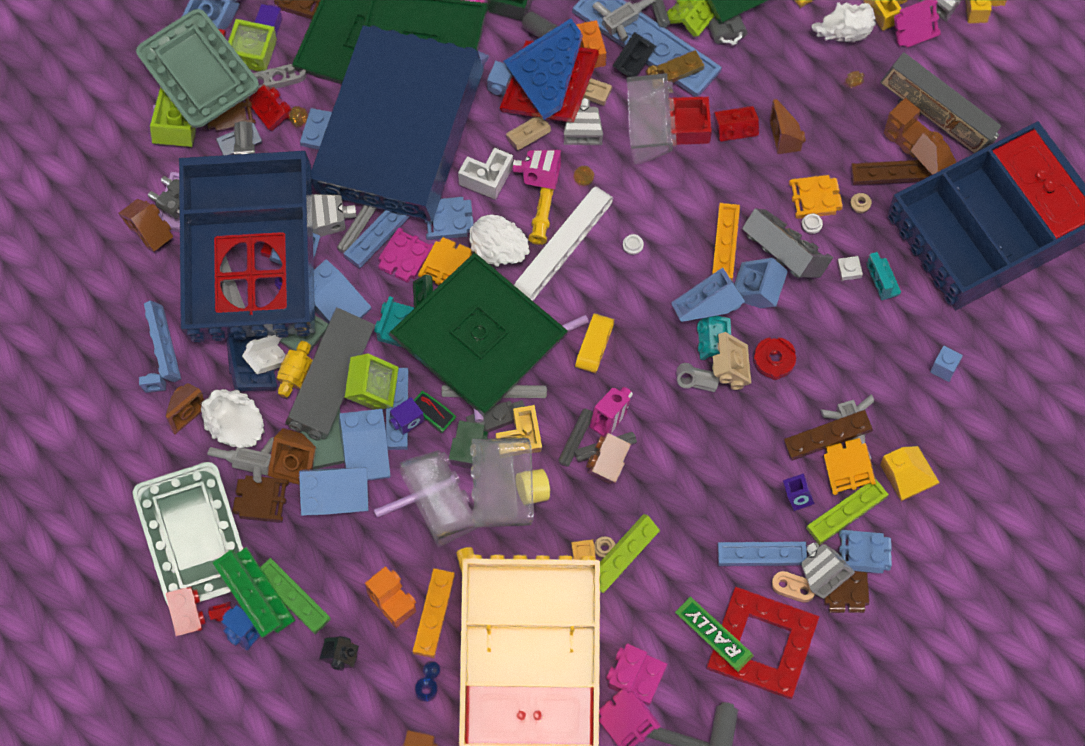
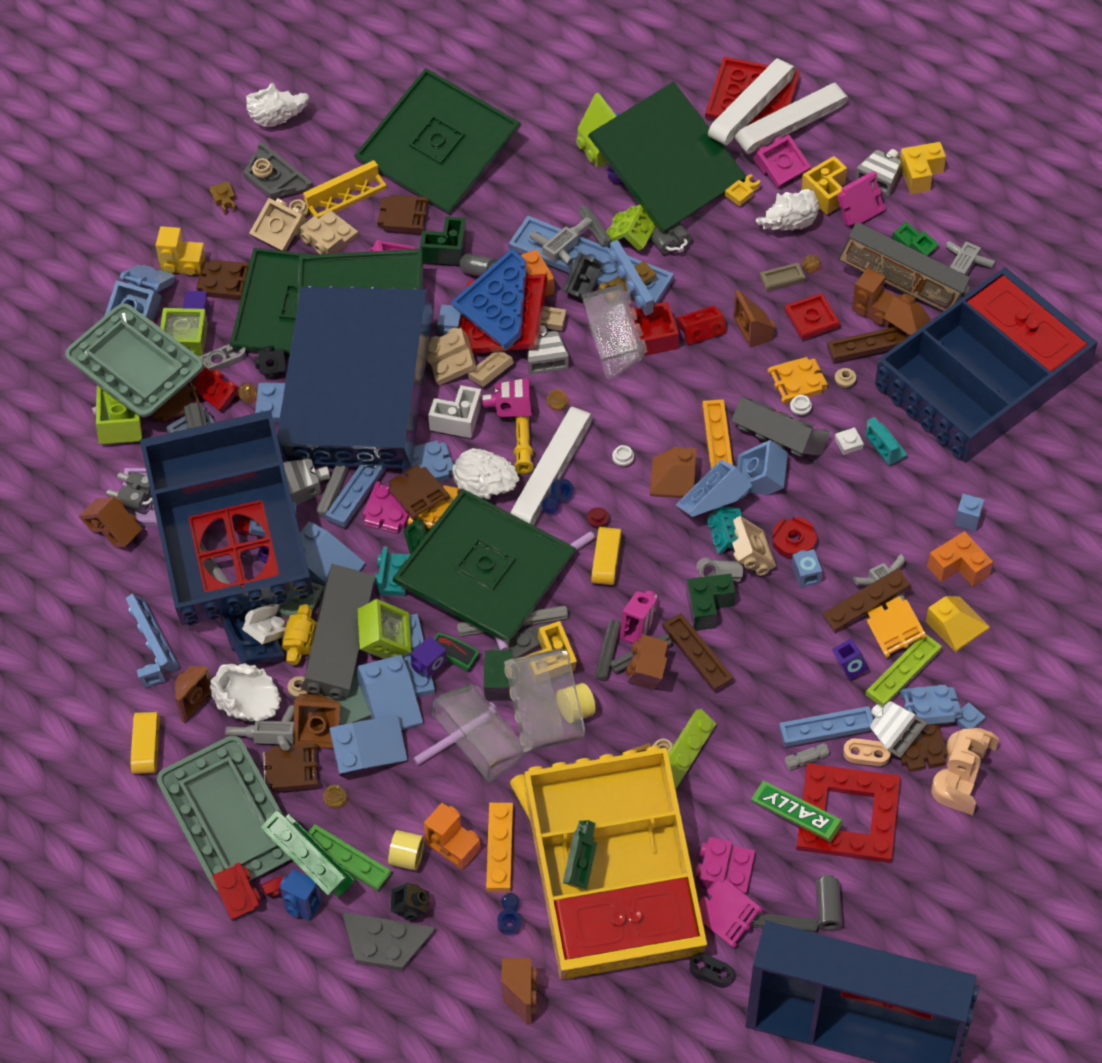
camera: 10 degrees left, 10 degrees down
(133, 448) = (145, 742): none -> yellow beam
(277, 419) = (294, 691): none -> tan plate
(294, 534) = (334, 796): none -> clear yellow plate
(309, 684) = (384, 941): none -> dark grey wing
(325, 88) = (276, 355): none -> black brick
(346, 601) = (406, 850): none -> light yellow piece
(432, 247) = (417, 491): none -> reddish brown plate
(493, 114) = (450, 355): none -> tan plate
(497, 650) = (581, 856): none -> dark green hinge
(555, 281) = (551, 504): none -> clear blue plate
(595, 302) = (597, 517): none -> dark red plate
(658, 456) = (697, 652): none -> reddish brown plate
(676, 271) = (673, 472): none -> dark orange slope
(679, 72) = (633, 281): none -> medium blue plate
(680, 400) = (706, 596): none -> dark green brick
(736, 579) = (806, 756): none -> light grey axle
(779, 391) = (806, 568): none -> medium blue brick
(824, 87) = (782, 277): none -> dark tan tile
(843, 134) = (812, 316): none -> red plate
(869, 634) = (954, 785): none -> light nougat piece
(899, 571) = (970, 717): none -> medium blue plate
(926, 406) = (960, 556): none -> orange brick
(959, 73) = (913, 239): none -> green slope
(1004, 101) = (967, 257): none -> light grey piece

